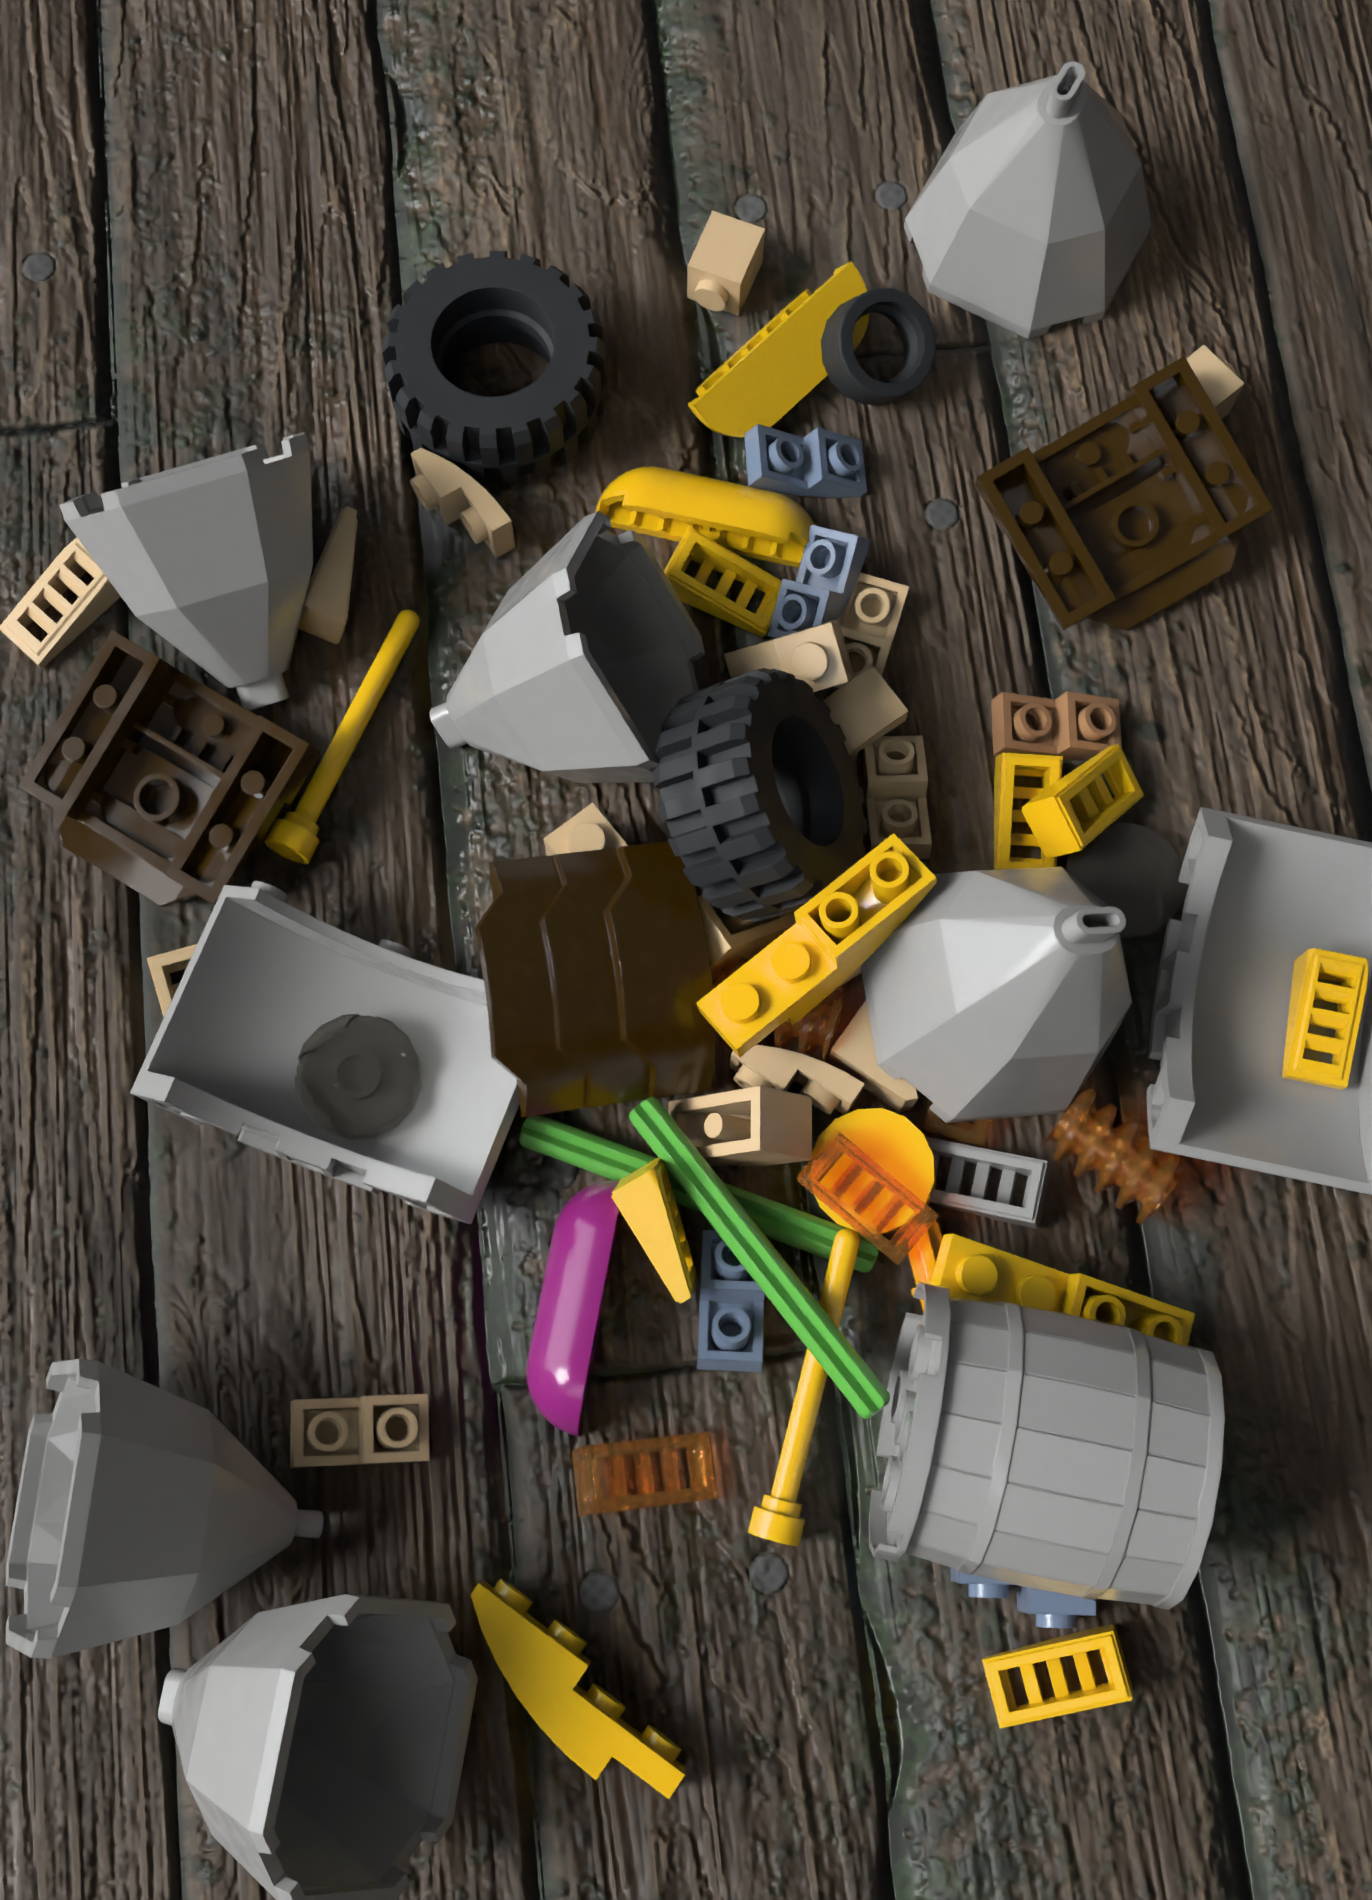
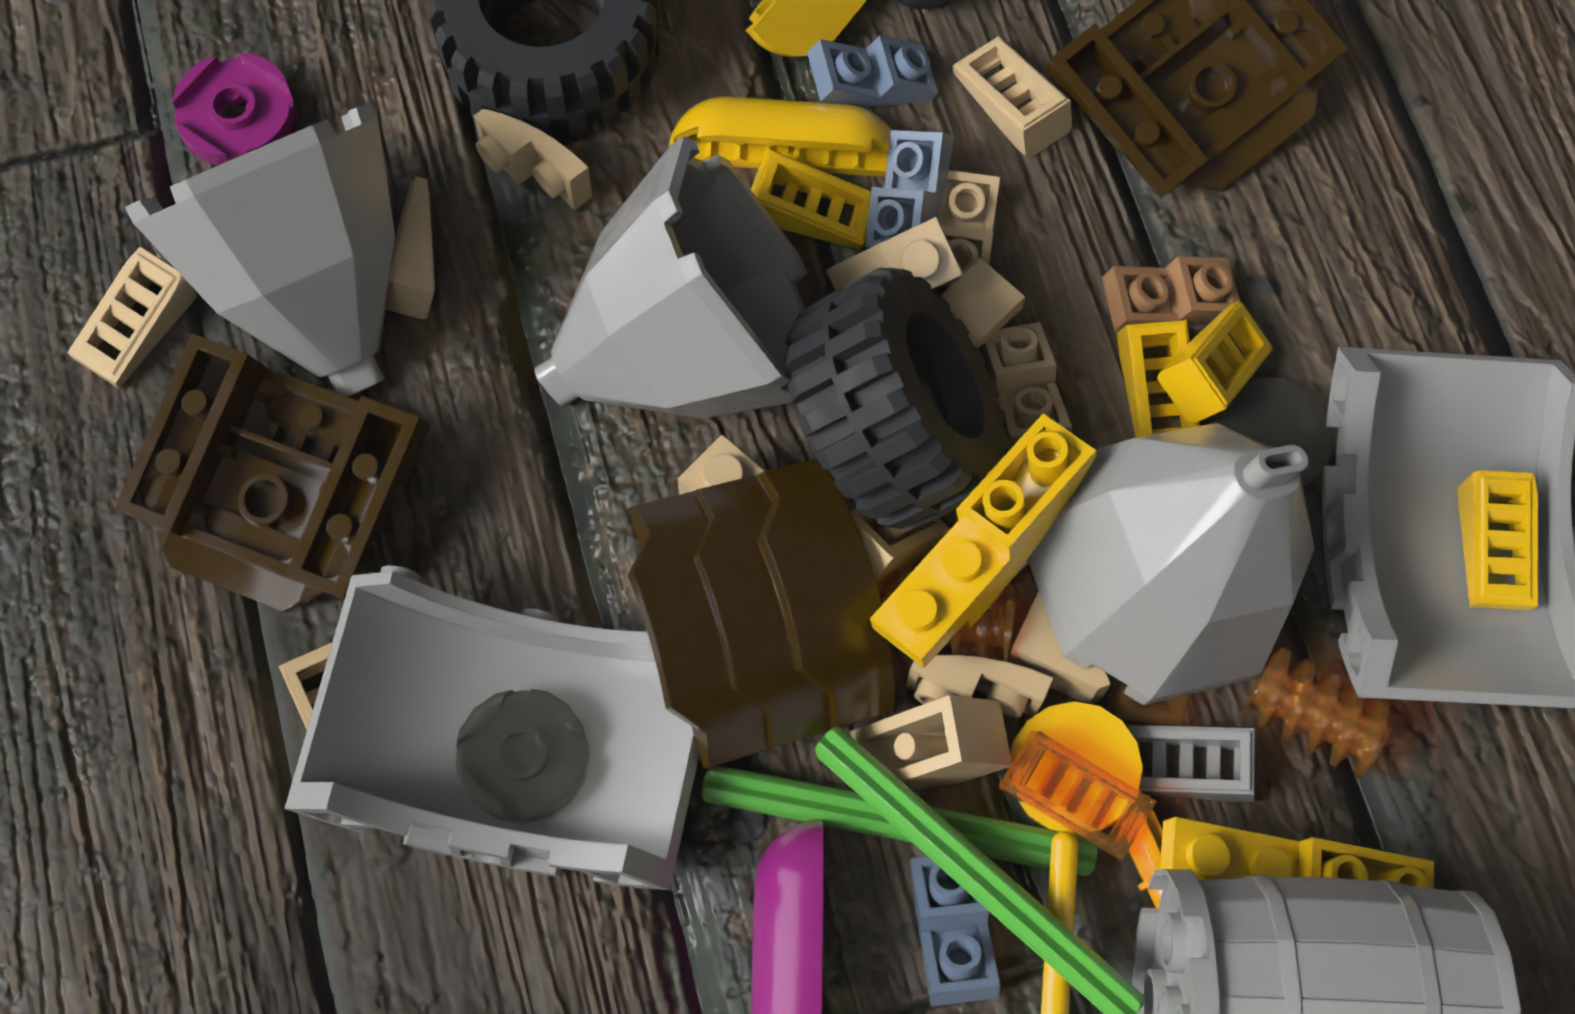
camera: 10 degrees left, 5 degrees down
(173, 384) = (211, 86): none -> magenta plate
(296, 833) = (414, 516): yellow piece -> none
(654, 1218) = (857, 847): yellow slope -> none
(956, 536) = (1034, 124): none -> tan slope

